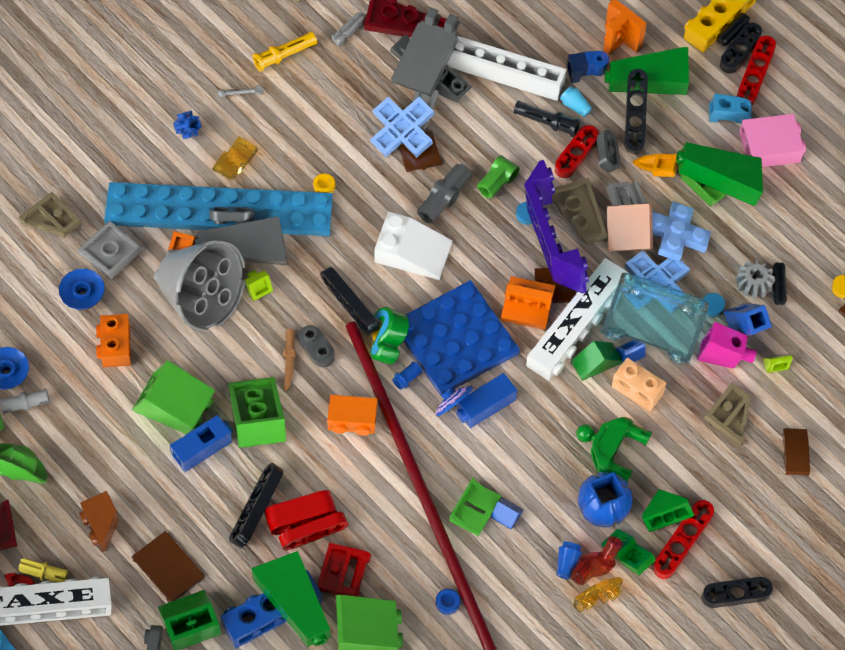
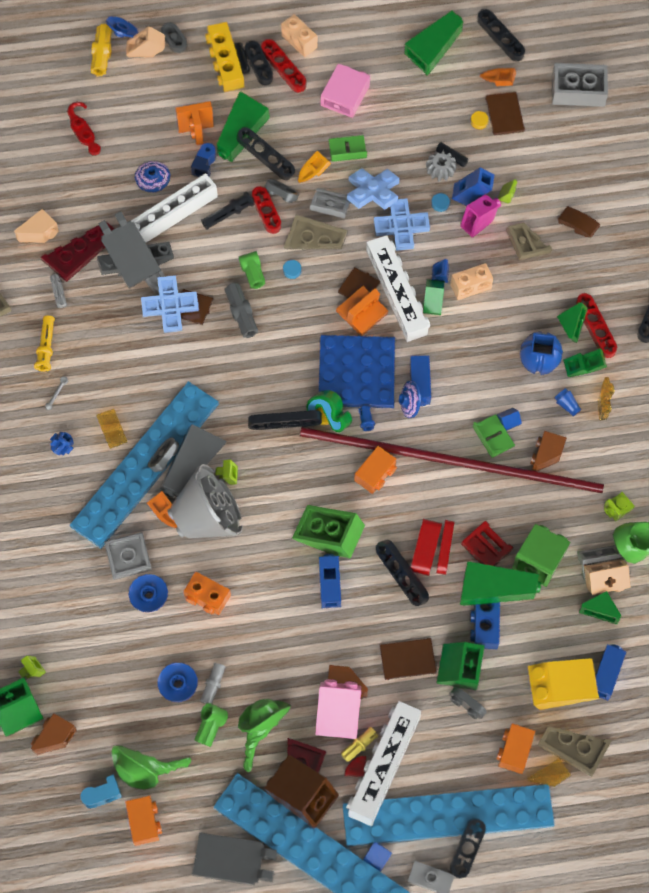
camera: 55 degrees left, 5 degrees up
(51, 216) = (70, 580): dark tan wing -> none
(63, 526) = (338, 709): none -> bright pink brick
(174, 398) = (282, 580): bright green slope -> none
(289, 354) = (296, 484): medium nougat piece -> none
(315, 344) = (302, 463): dark grey plate -> none
(324, 183) = (175, 383): yellow tile -> none
(411, 246) = (268, 356): white slope -> none
(447, 601) = (549, 493): blue tile -> none
(493, 571) = (549, 450): none -> dark orange slope
(537, 40) = (153, 182): none -> dish
(565, 267) = (330, 265): dark purple slope -> none
(575, 101) = (228, 185): medium azure cone -> none
(597, 563) = (582, 385): clear red arm -> none
(608, 441) = (501, 328): green connector -> none
(629, 227) = (354, 213): tile -> none
(656, 316) = (433, 237): clear light blue windscreen -> none
(723, 170) = (351, 131): green slope -> none
(729, 108) = (302, 99): dark azure leg -> none
(800, 62) = (299, 35): none -> light nougat brick

